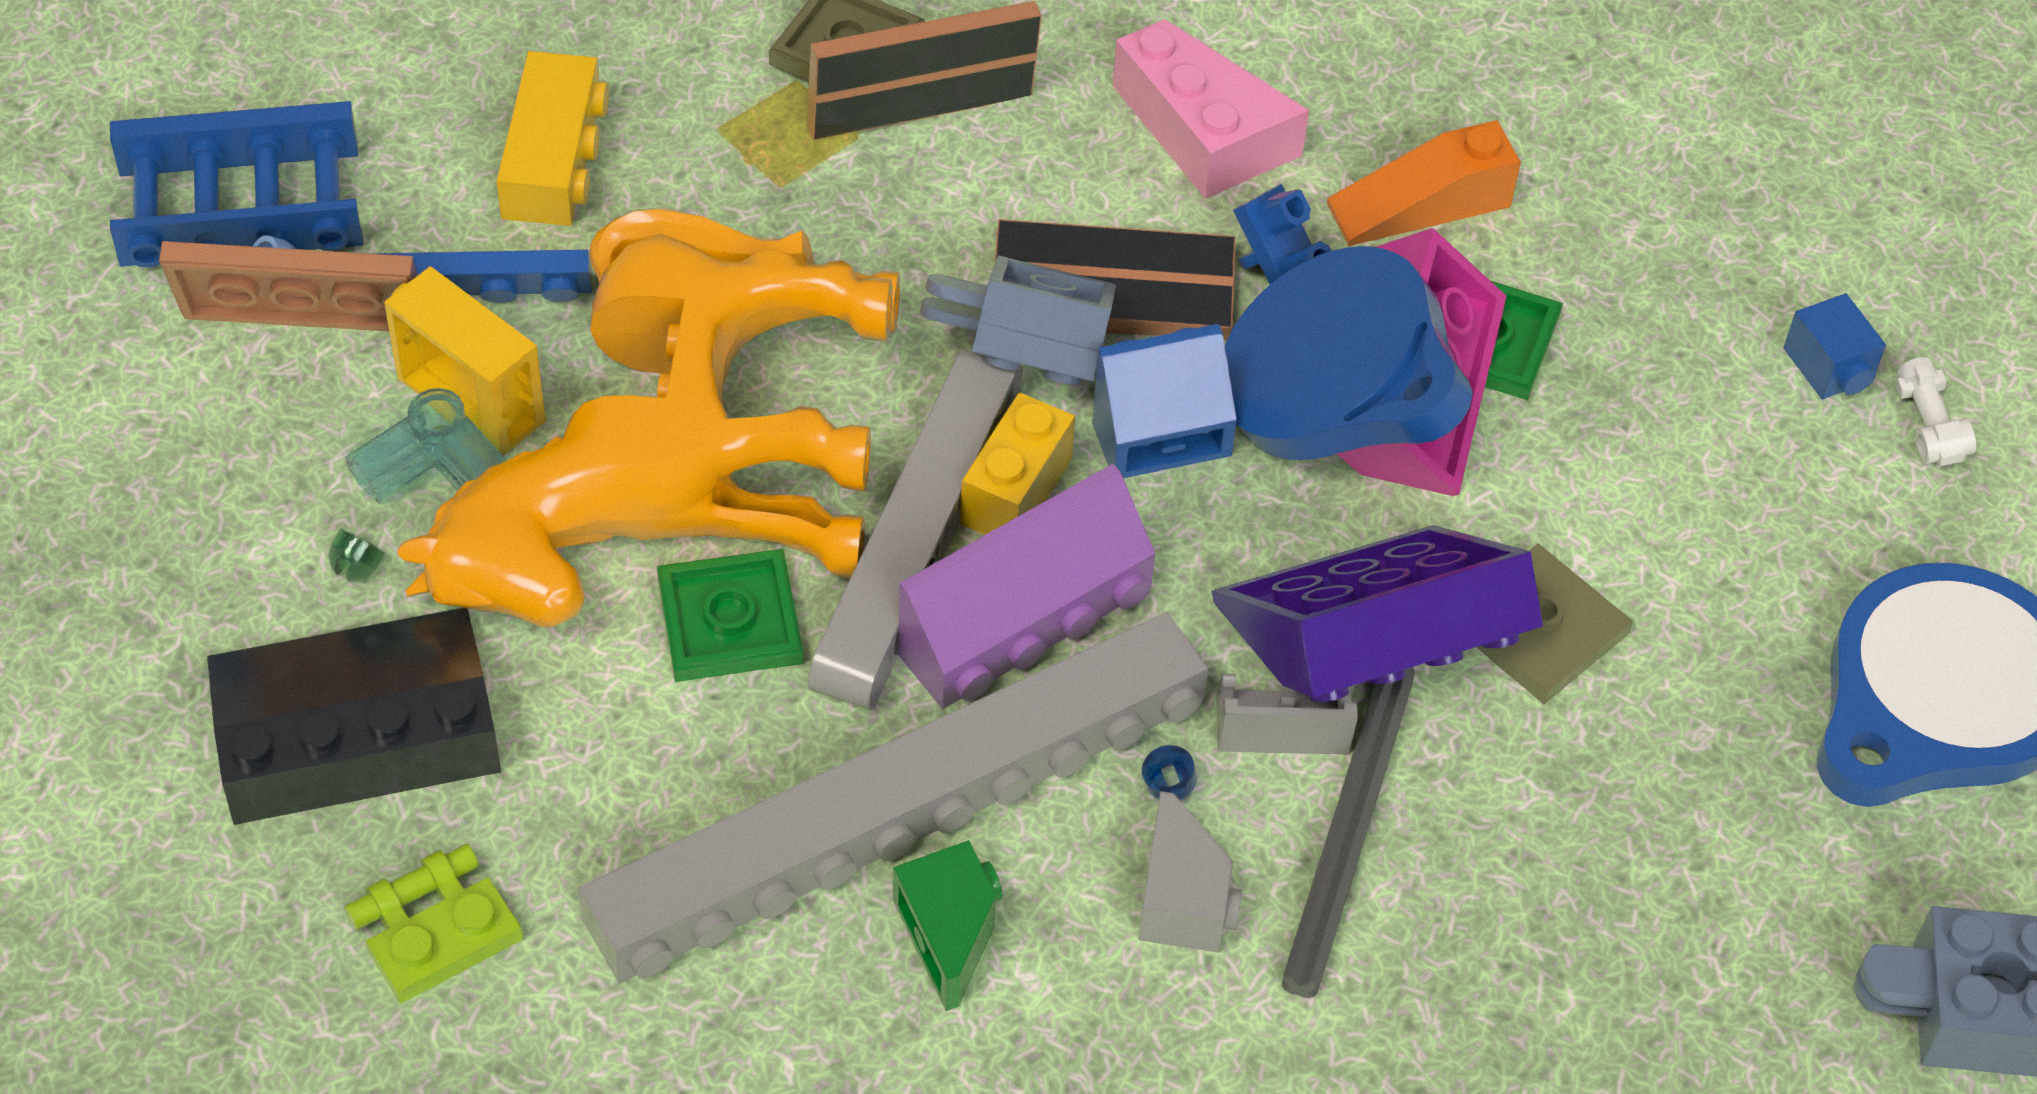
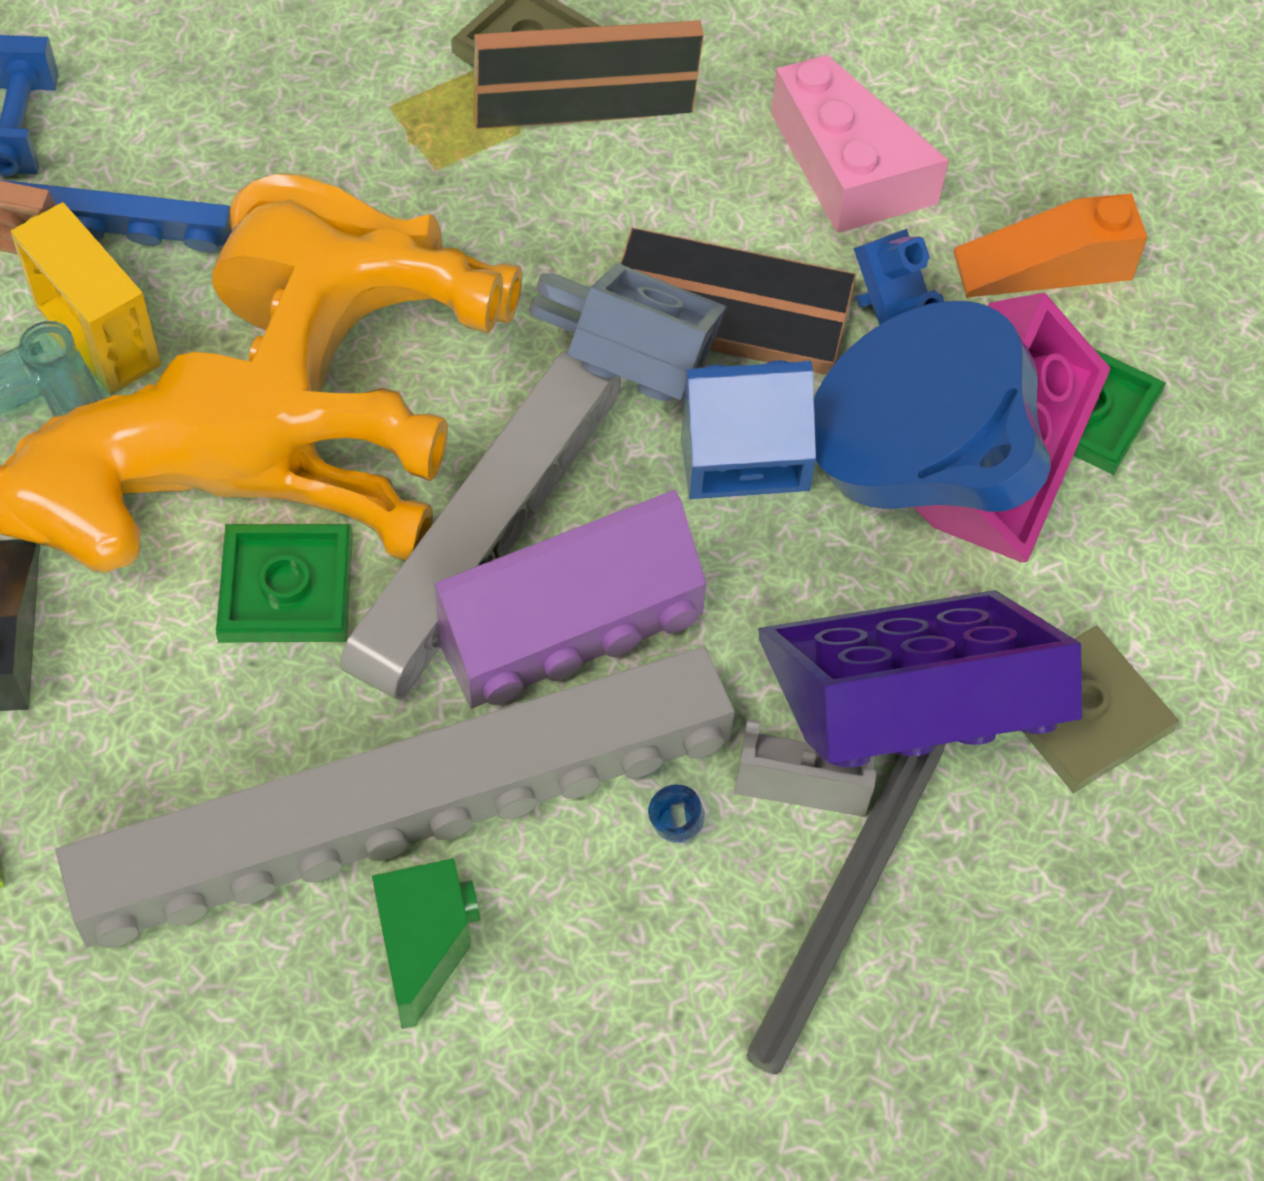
camera: 10 degrees right, 5 degrees up
(551, 138) = (228, 96): yellow brick -> none
(1017, 464) = (593, 472): yellow brick -> none
(1187, 883) = (667, 934): light grey slope -> none

